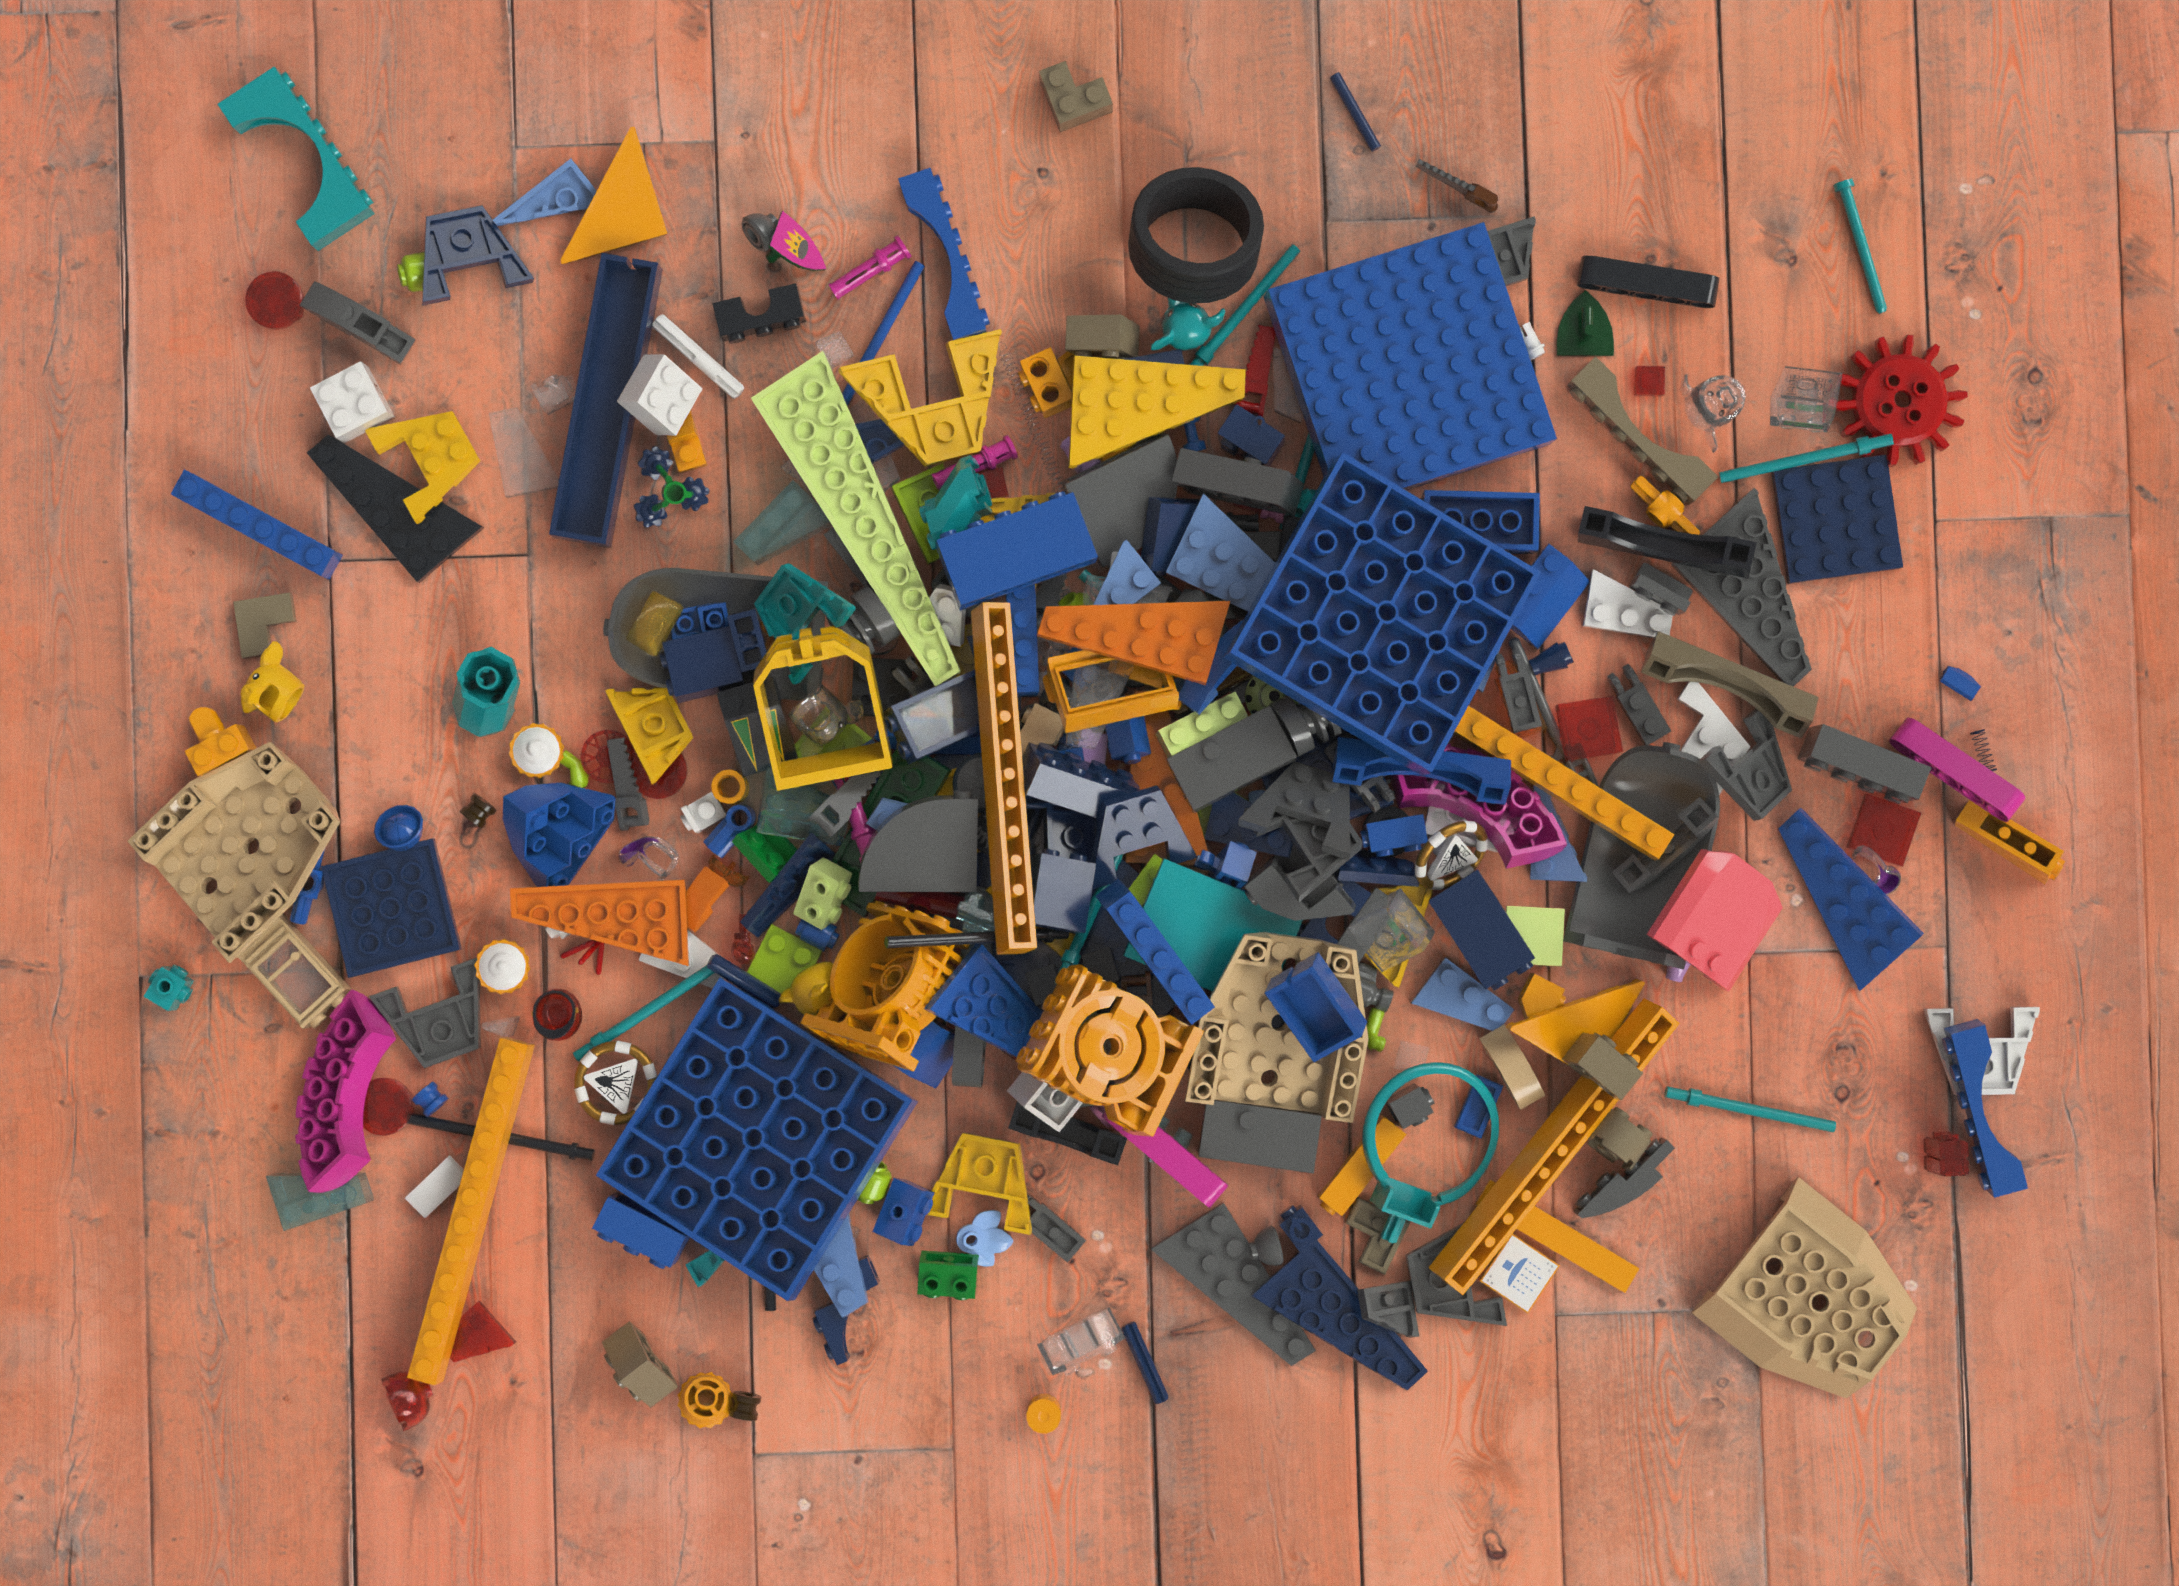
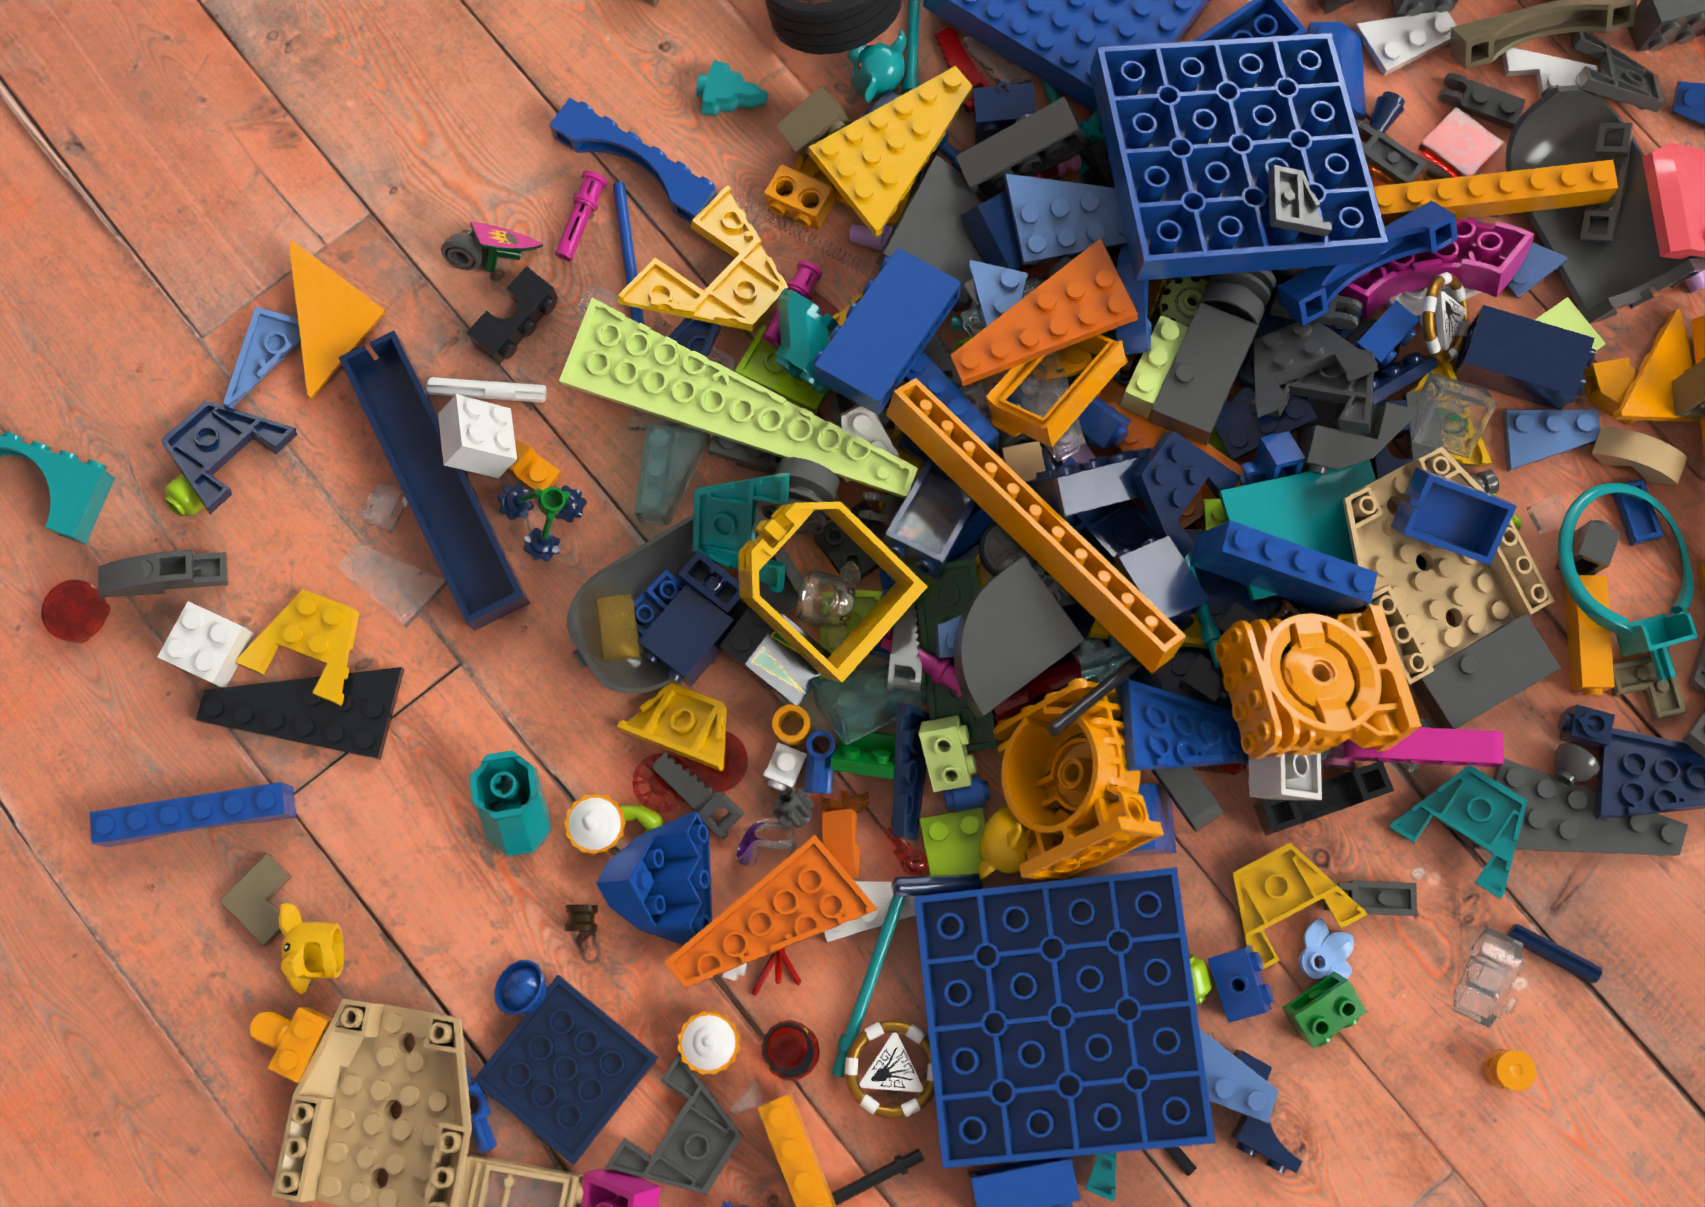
camera: 40 degrees left, 10 degrees down
(686, 848) = (793, 808): none -> dark grey gear
(1059, 250) = (726, 91): none -> teal rock
(1170, 1226) = (1480, 812): none -> teal wing
(1381, 690) = (1293, 203): none -> wing

